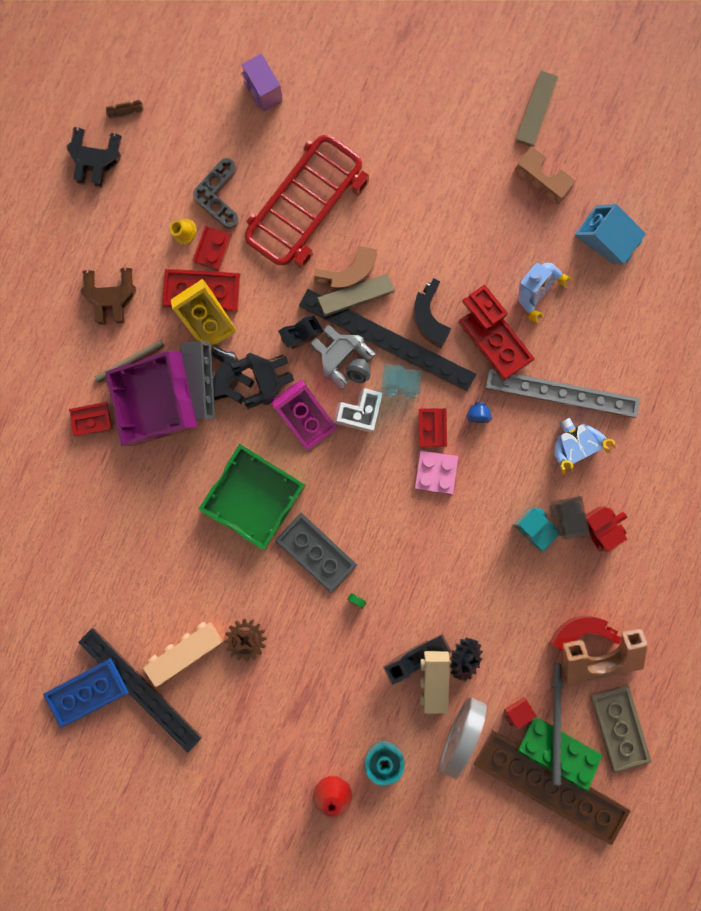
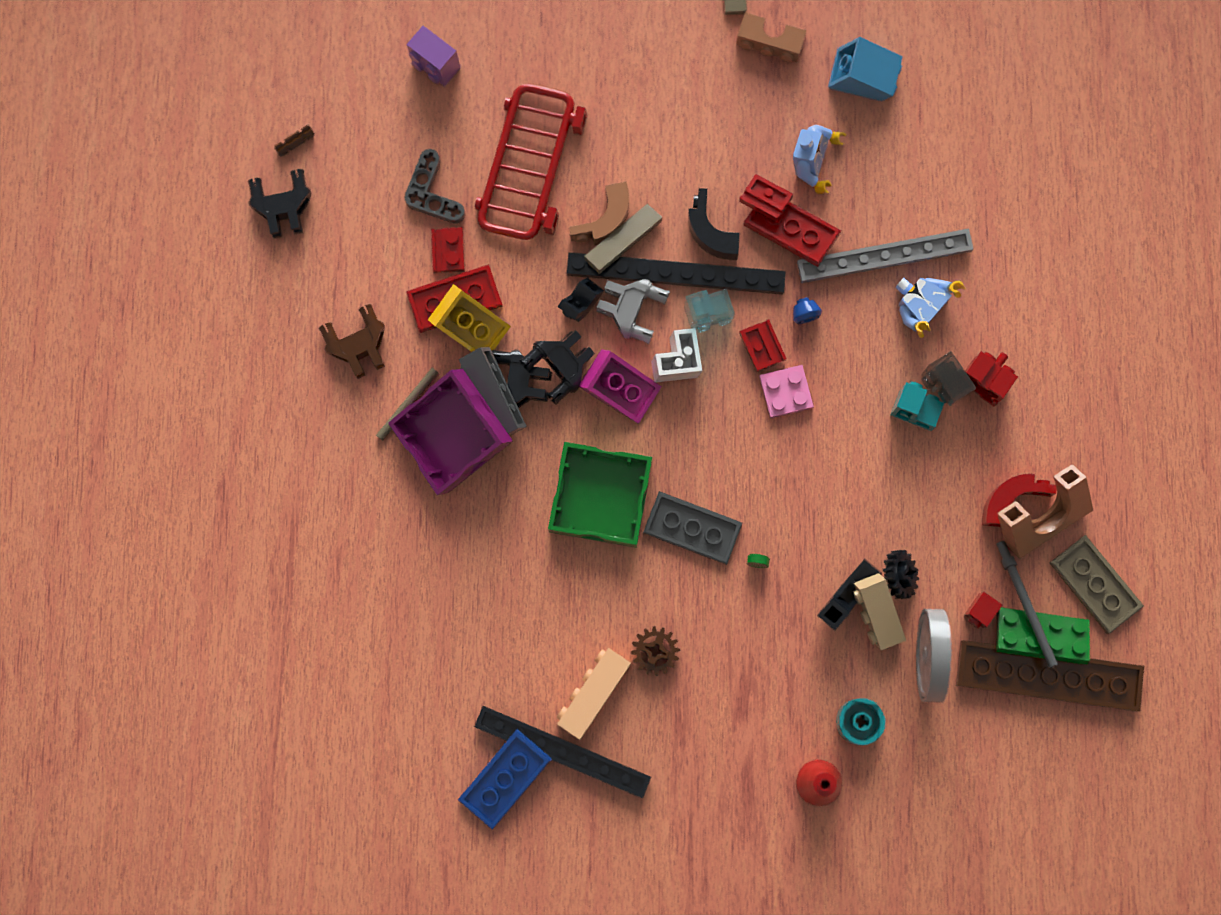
camera: 20 degrees left, 5 degrees down
(90, 419) = (390, 482): red plate -> none
(183, 231) = (411, 243): yellow piece -> none
(358, 370) = (659, 316): dark grey cone -> none

